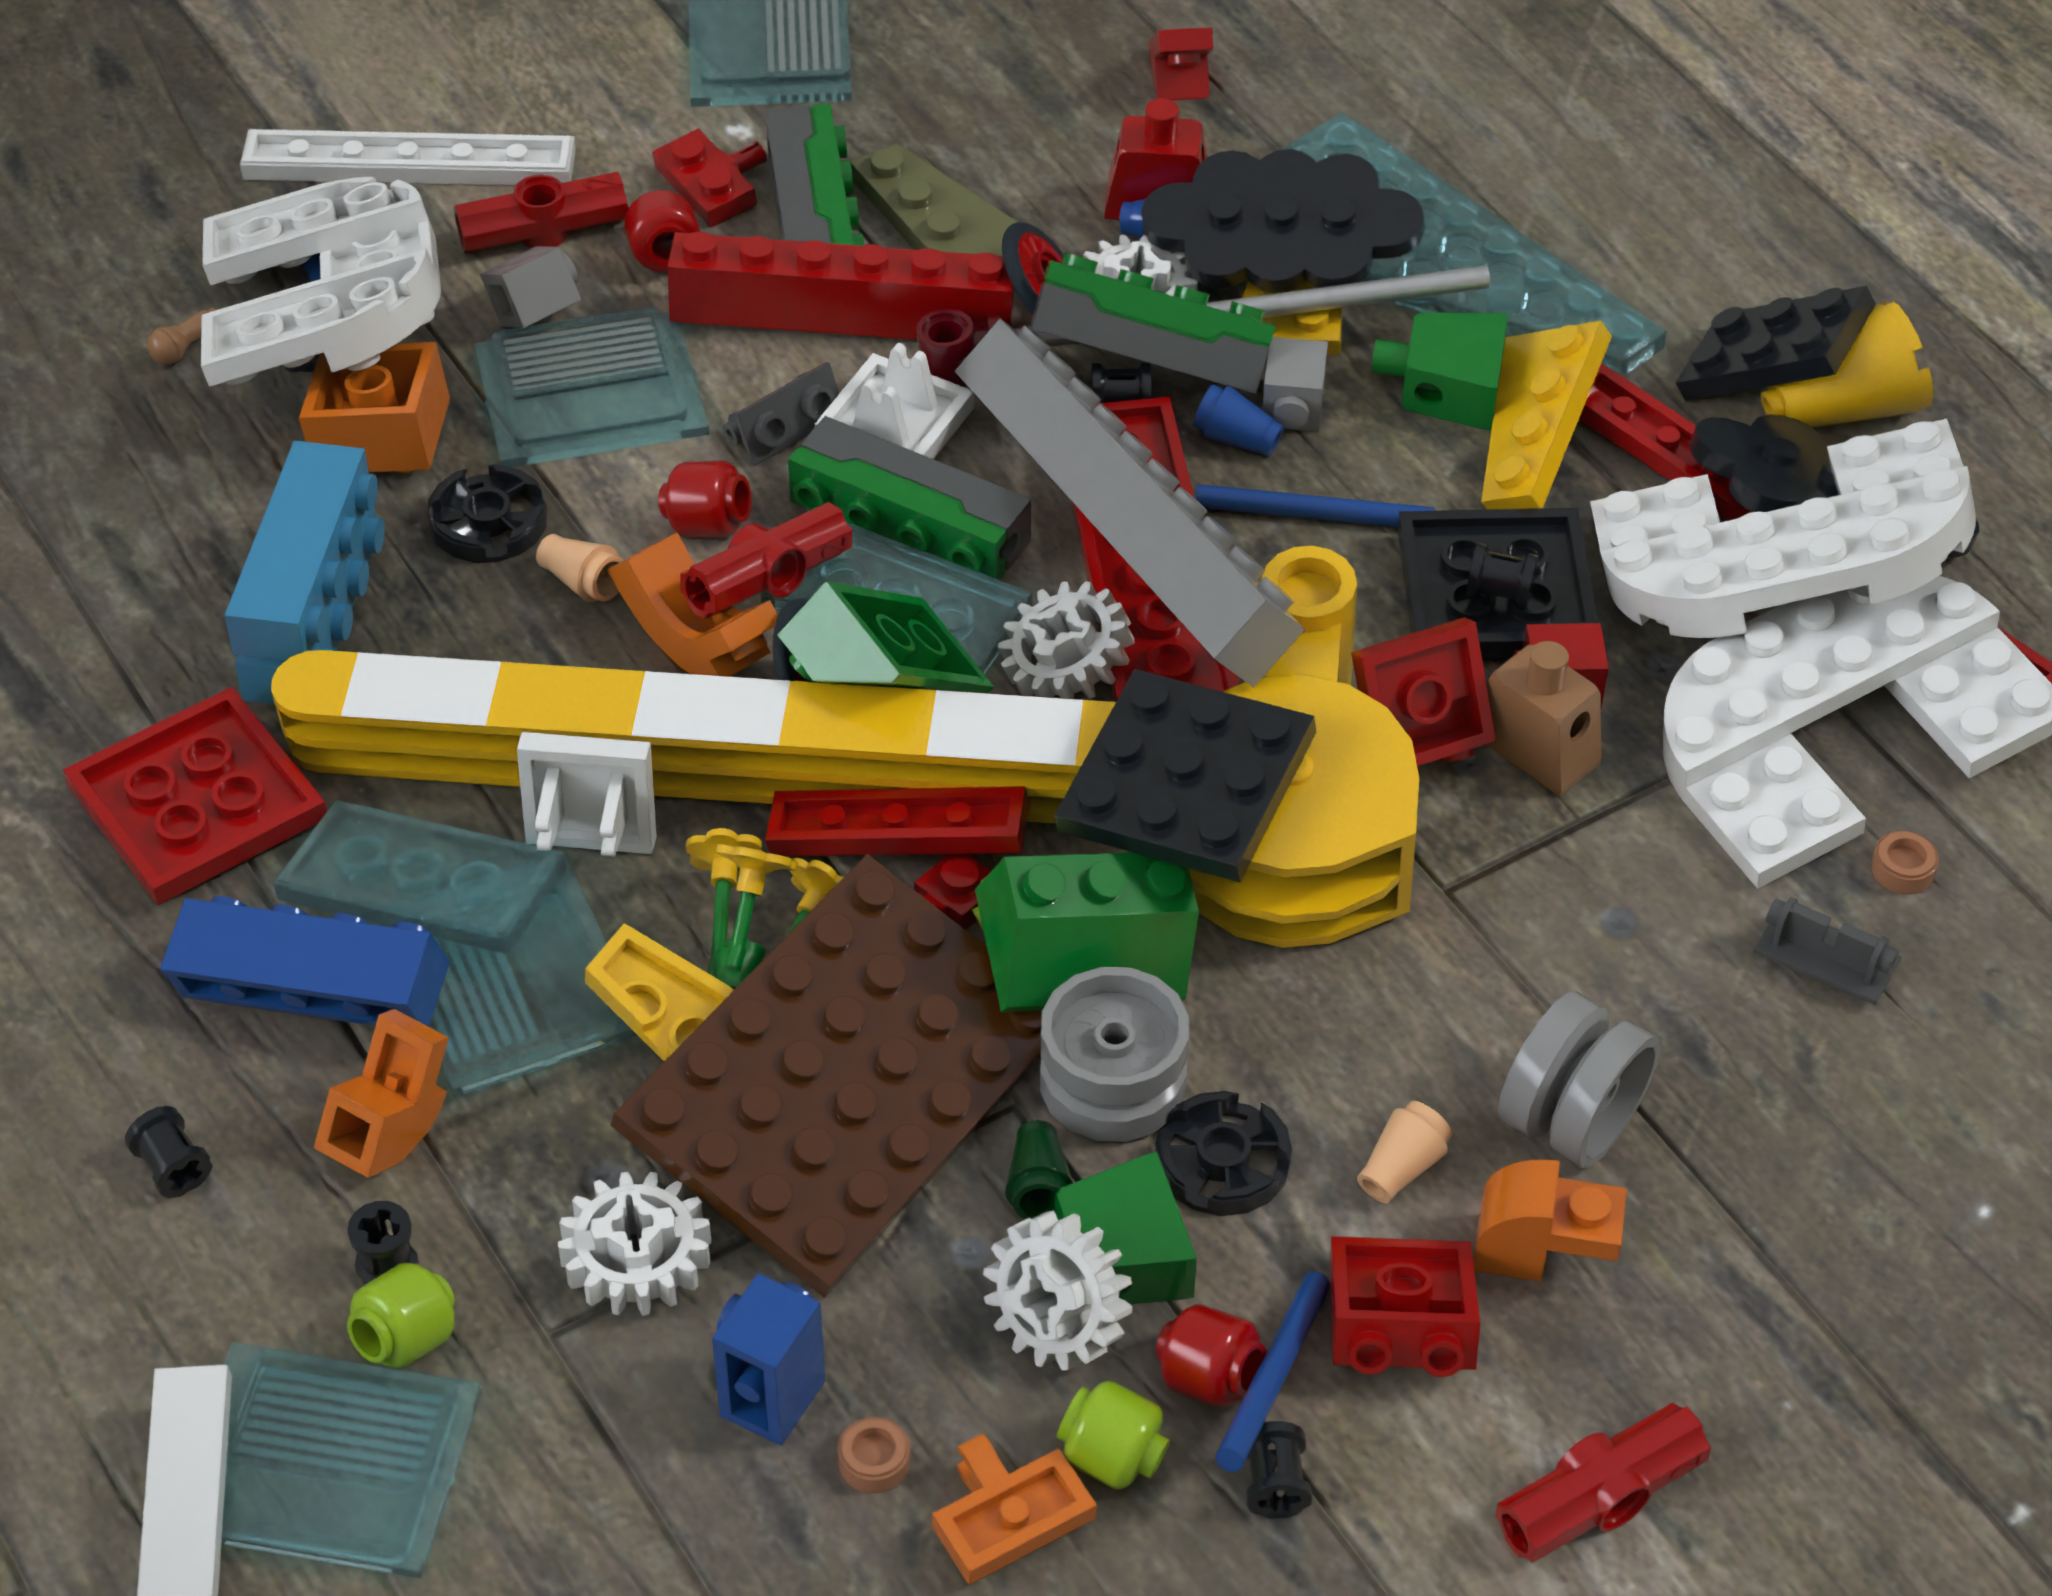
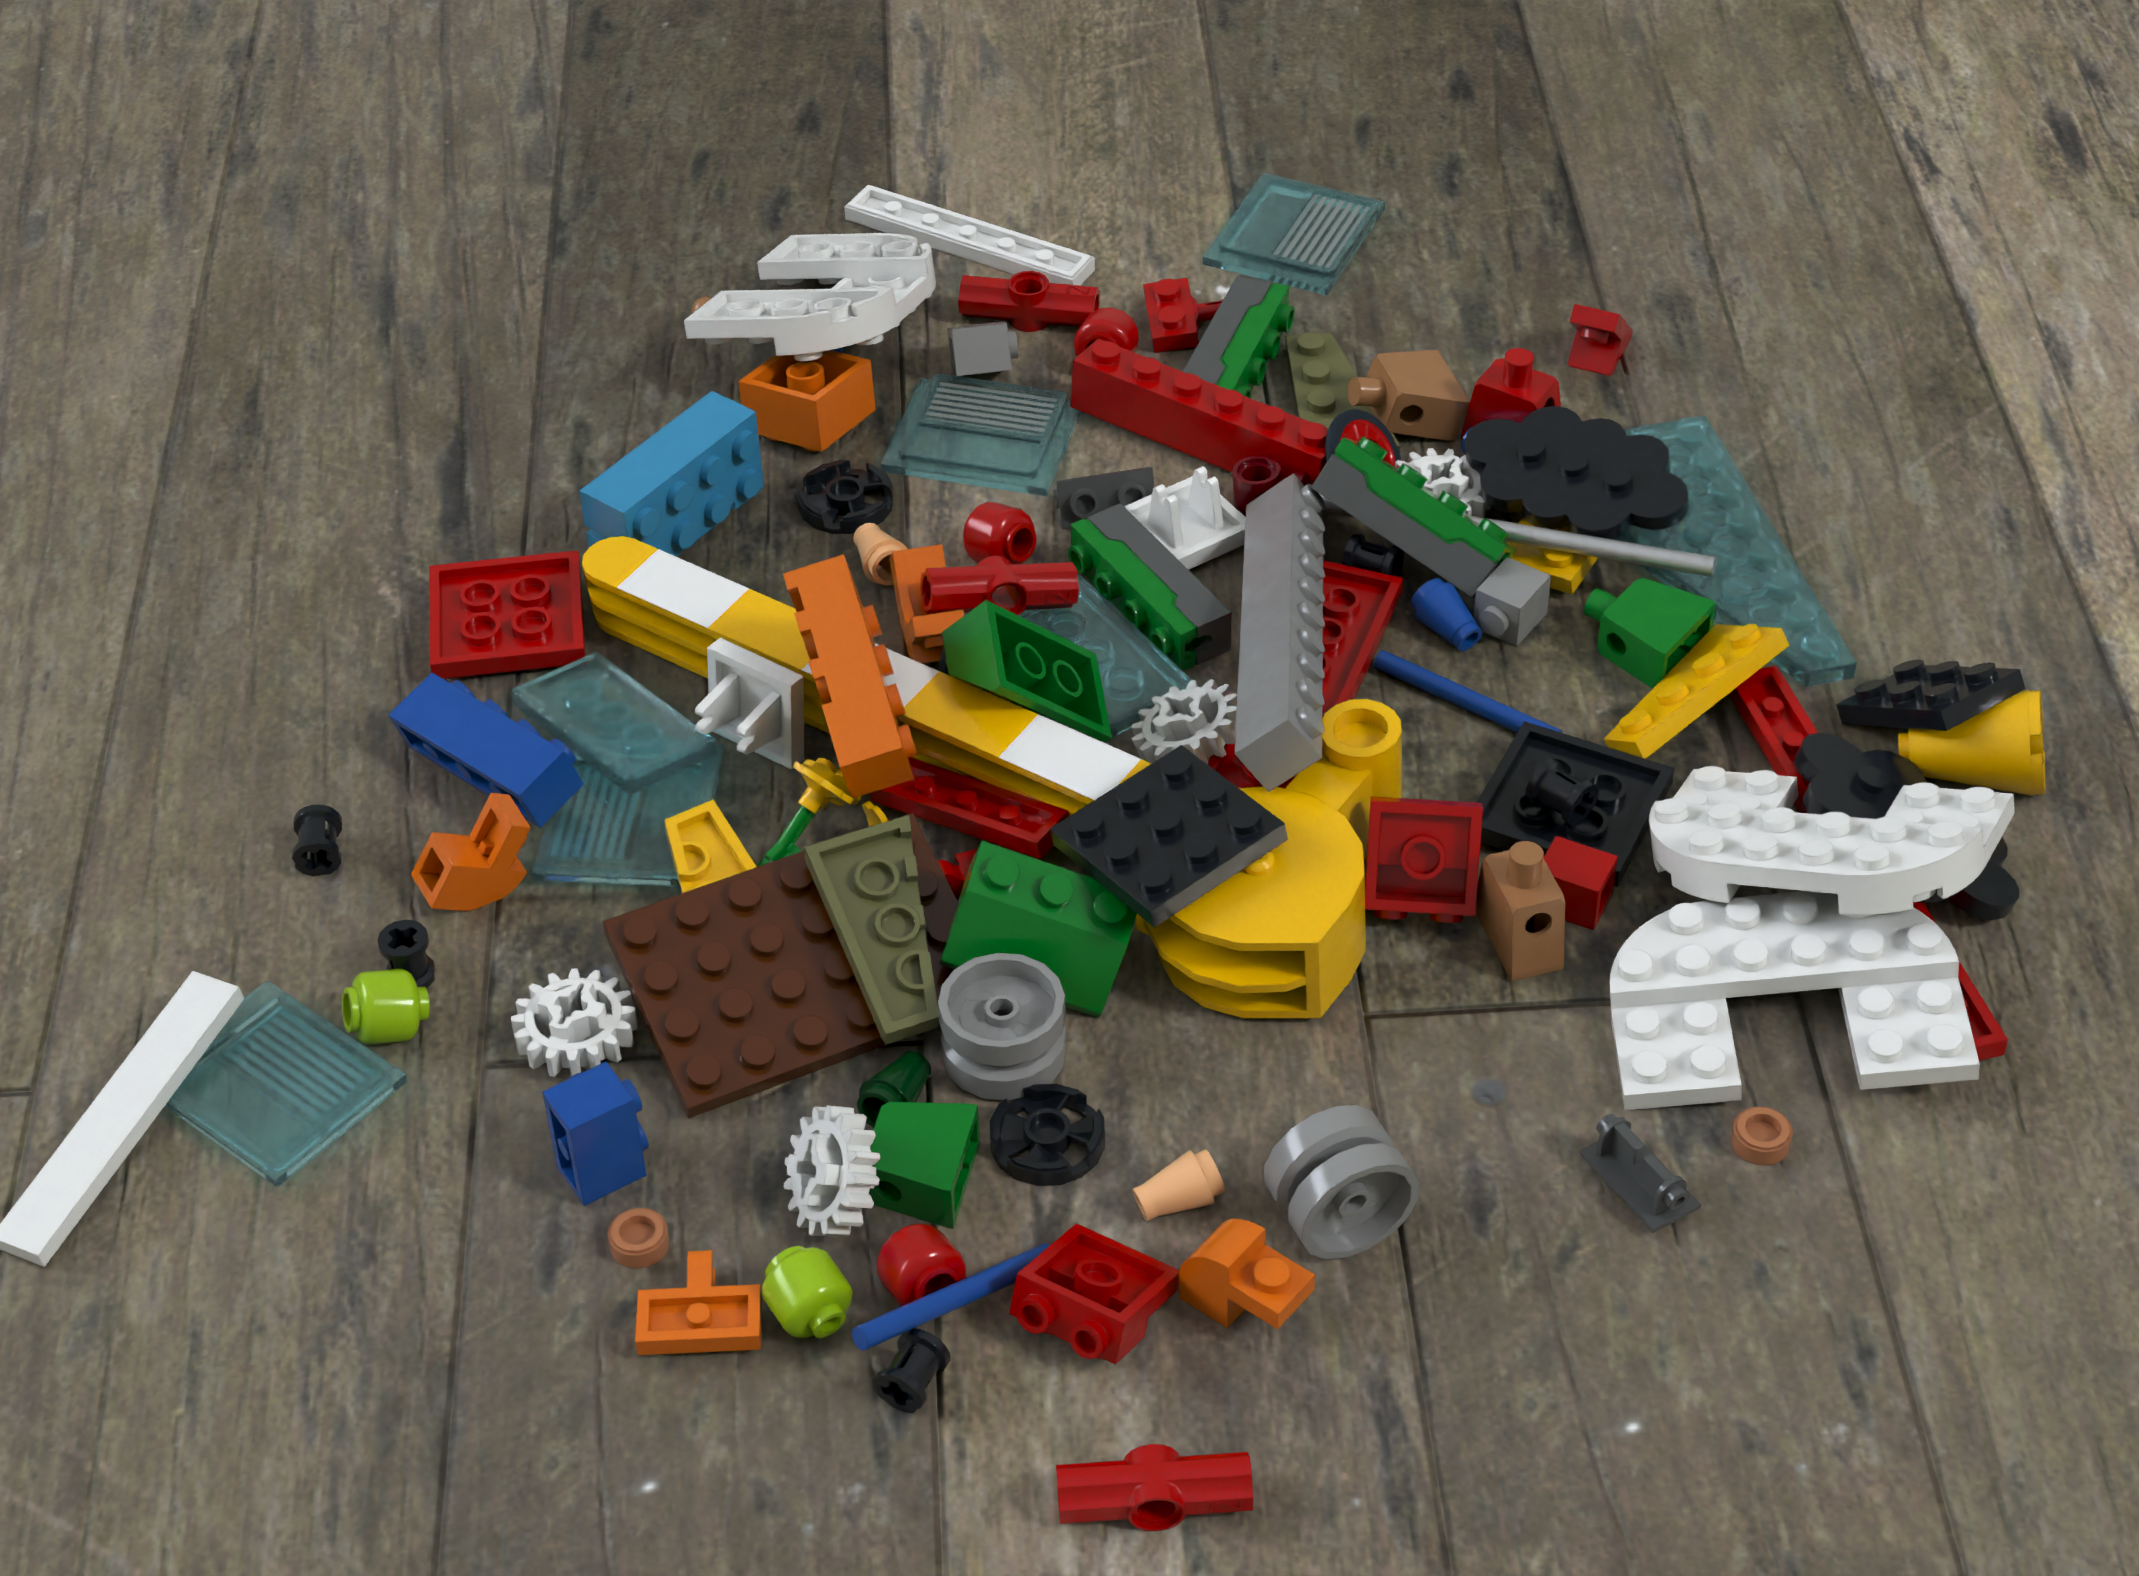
camera: 30 degrees right, 5 degrees down
(719, 725) = (851, 677): none -> orange wedge
(906, 977) = (878, 915): none -> olive wing
(1042, 185) = (1412, 394): none -> medium nougat torso

